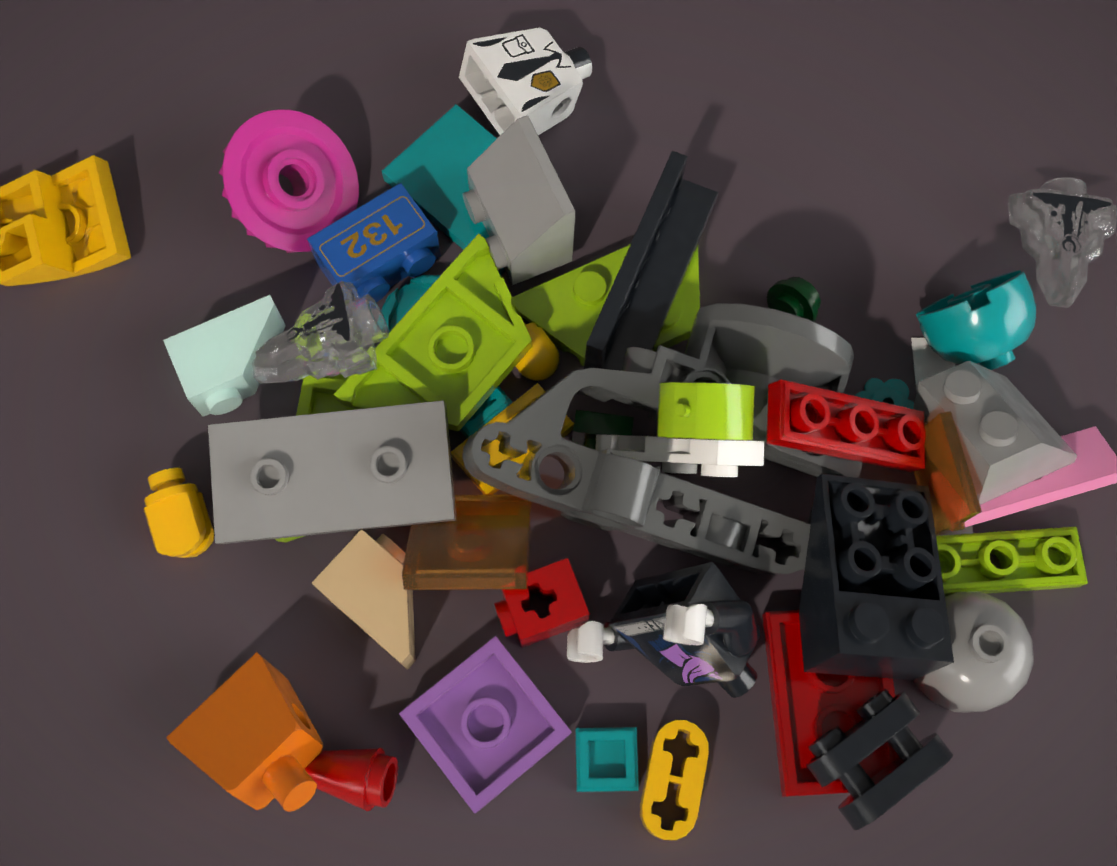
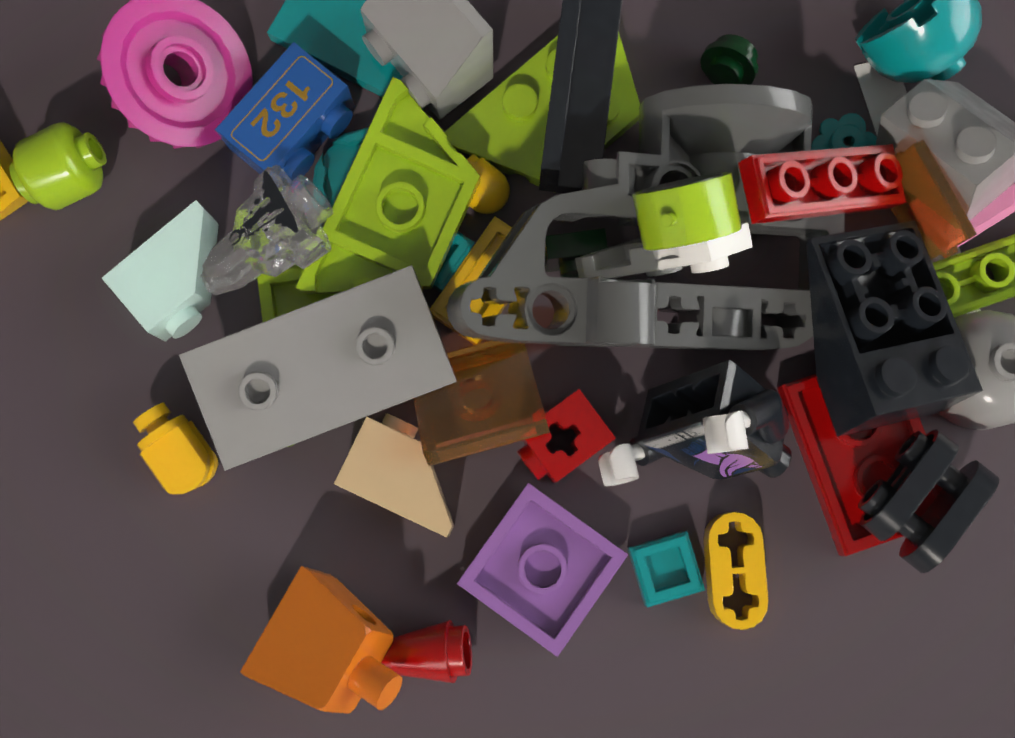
camera: 15 degrees left, 10 degrees up
(159, 236) = (57, 166): none -> lime head

